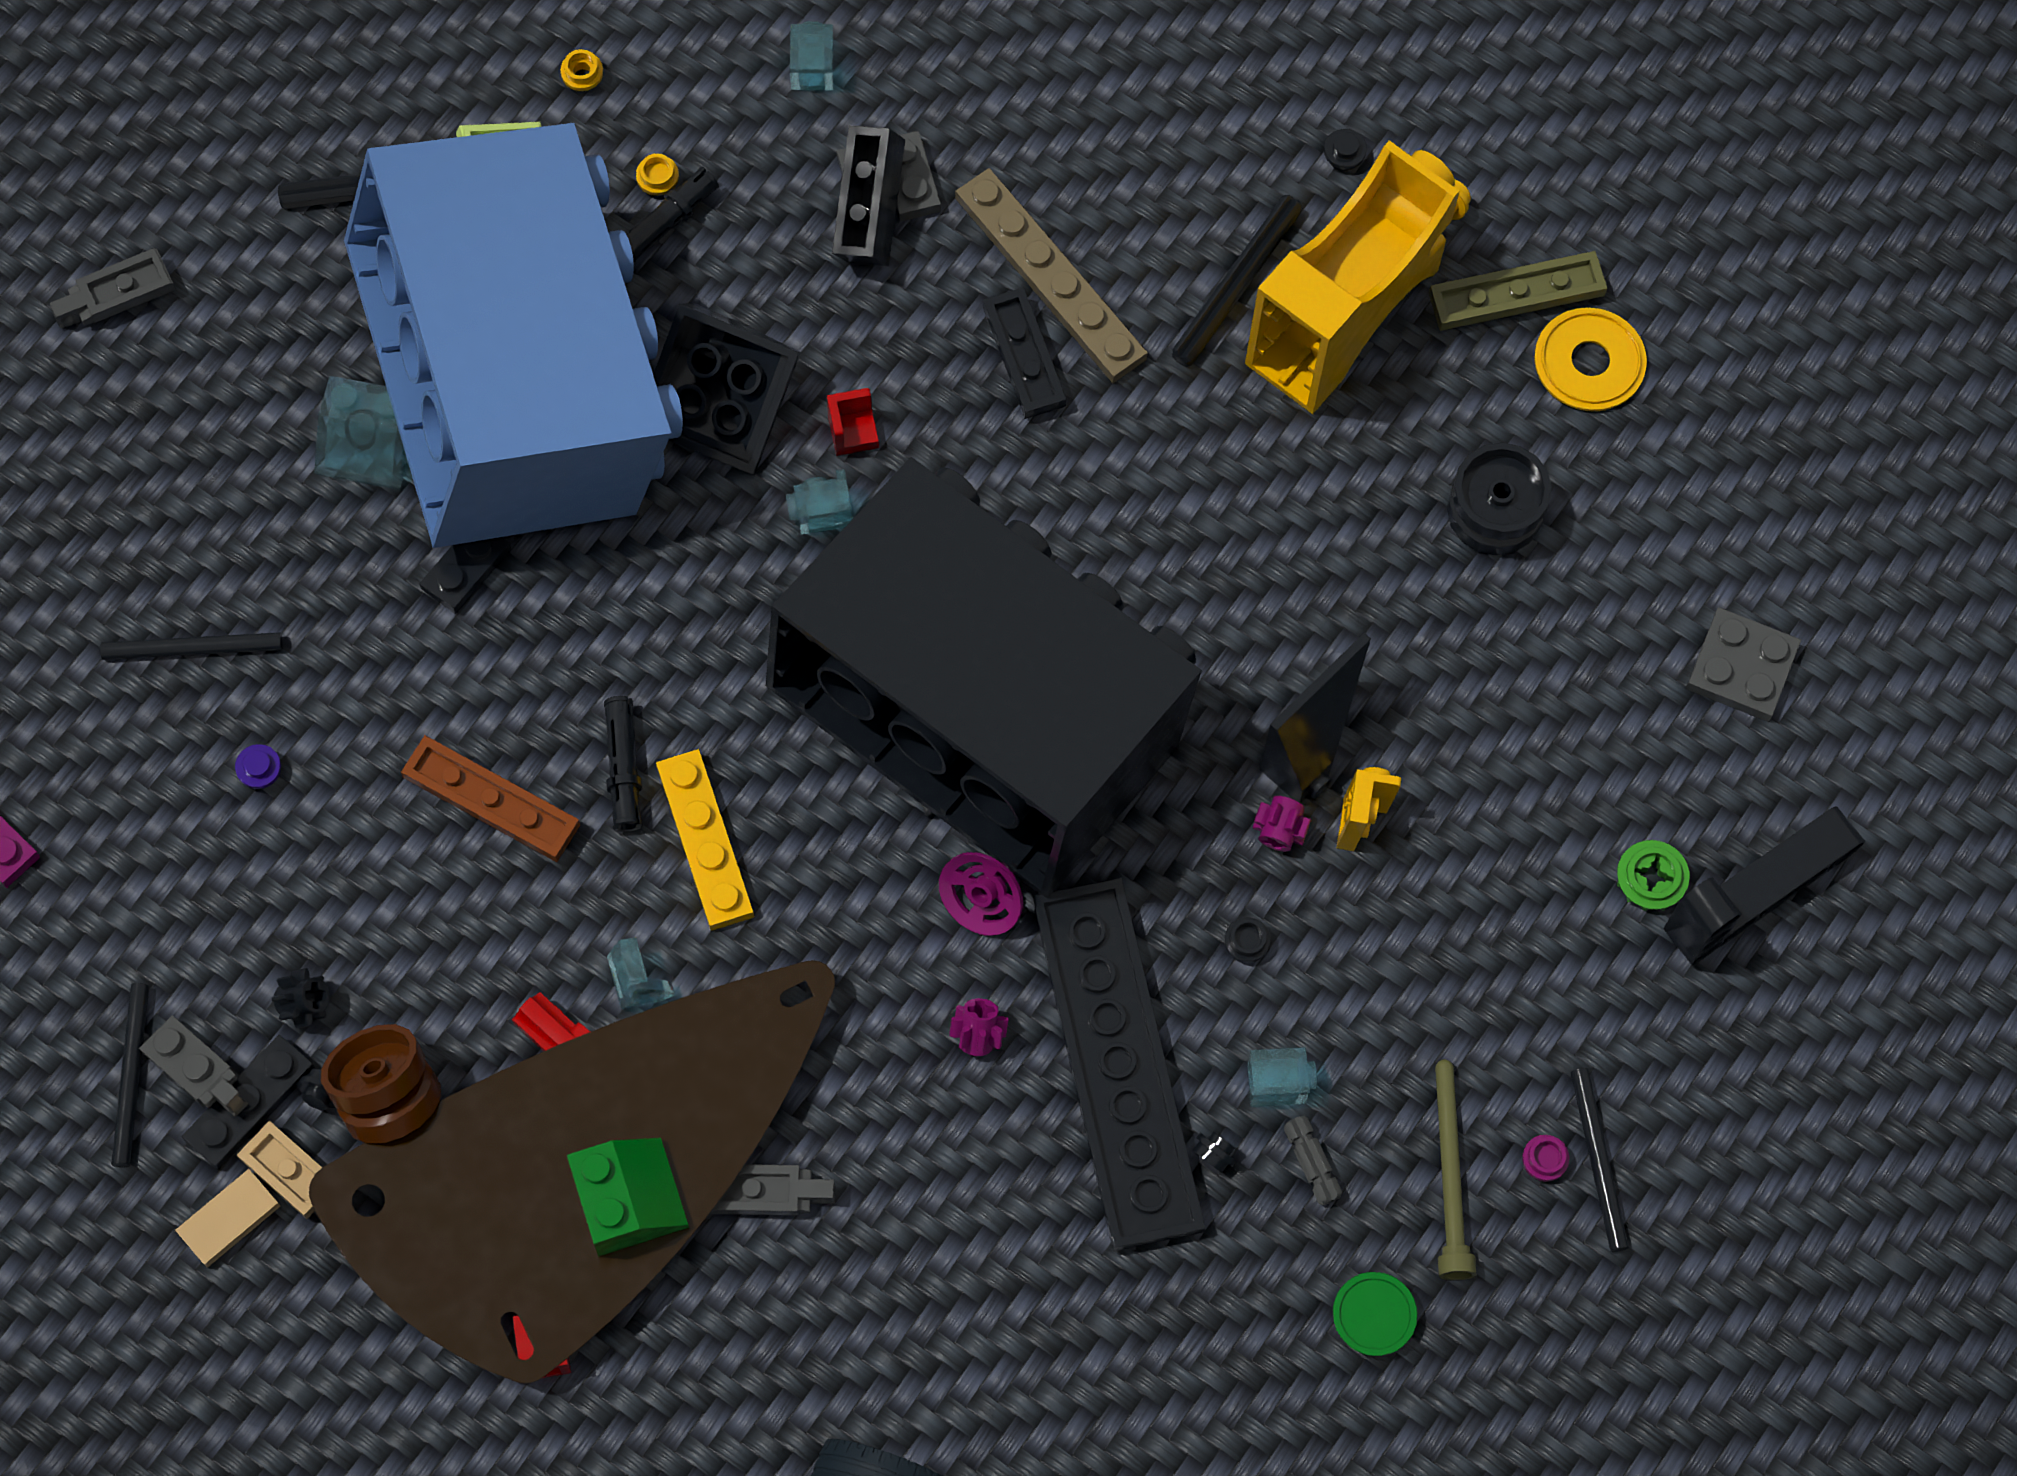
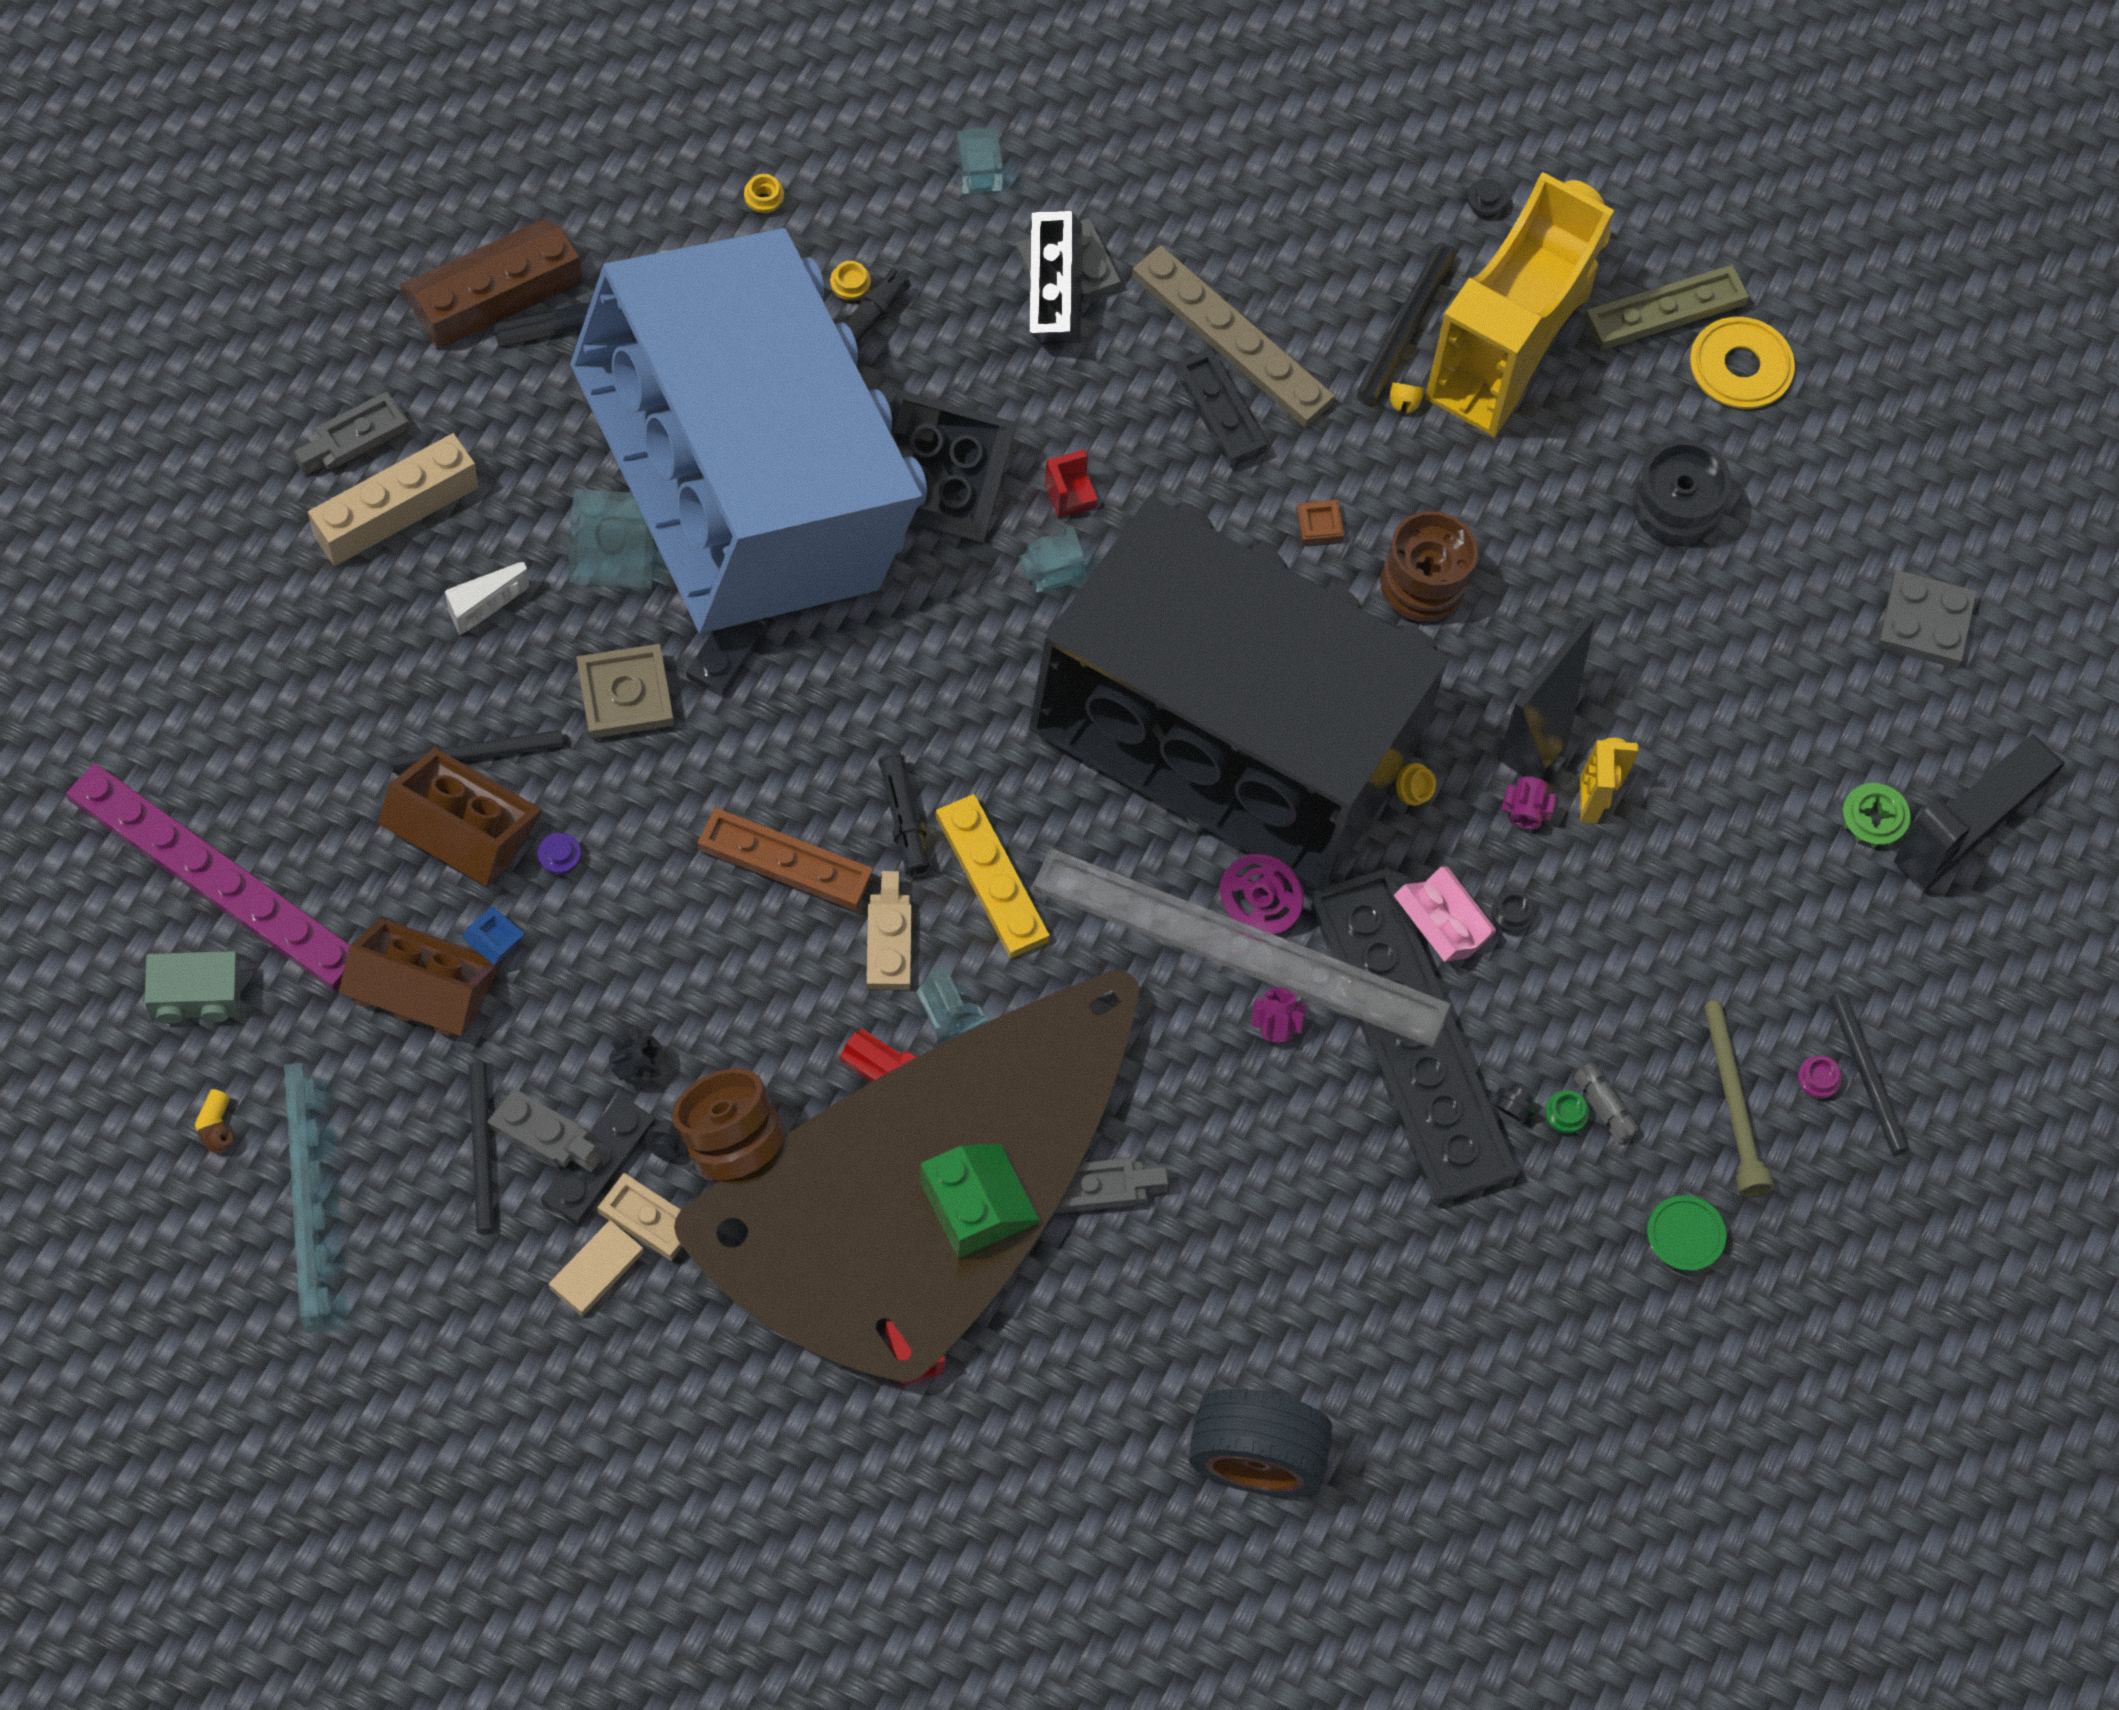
camera: 10 degrees left, 5 degrees down
(91, 883) = (417, 977): none -> reddish brown slope
(144, 366) = (393, 499): none -> tan brick
(158, 715) = (458, 816): none -> reddish brown slope
(175, 848) = (493, 935): none -> blue plate
(222, 480) = (483, 596): none -> white slope
(284, 140) = (493, 282): none -> reddish brown slope
(352, 598) = (625, 691): none -> dark tan plate
(586, 894) = (889, 937): none -> tan hinge
(952, 950) = (1242, 947): none -> clear plate
(1110, 489) = (1320, 522): none -> dark orange tile
(1164, 789) = (1415, 784): none -> yellow plate
(1172, 937) = (1446, 915): none -> bright pink bracket
(1220, 532) = (1428, 566): none -> reddish brown wheel
(1224, 358) = (1405, 393): none -> yellow hinge
(1269, 1165) = (1567, 1111): none -> green plate
(1280, 1076) = (1564, 1030): clear light blue brick -> none

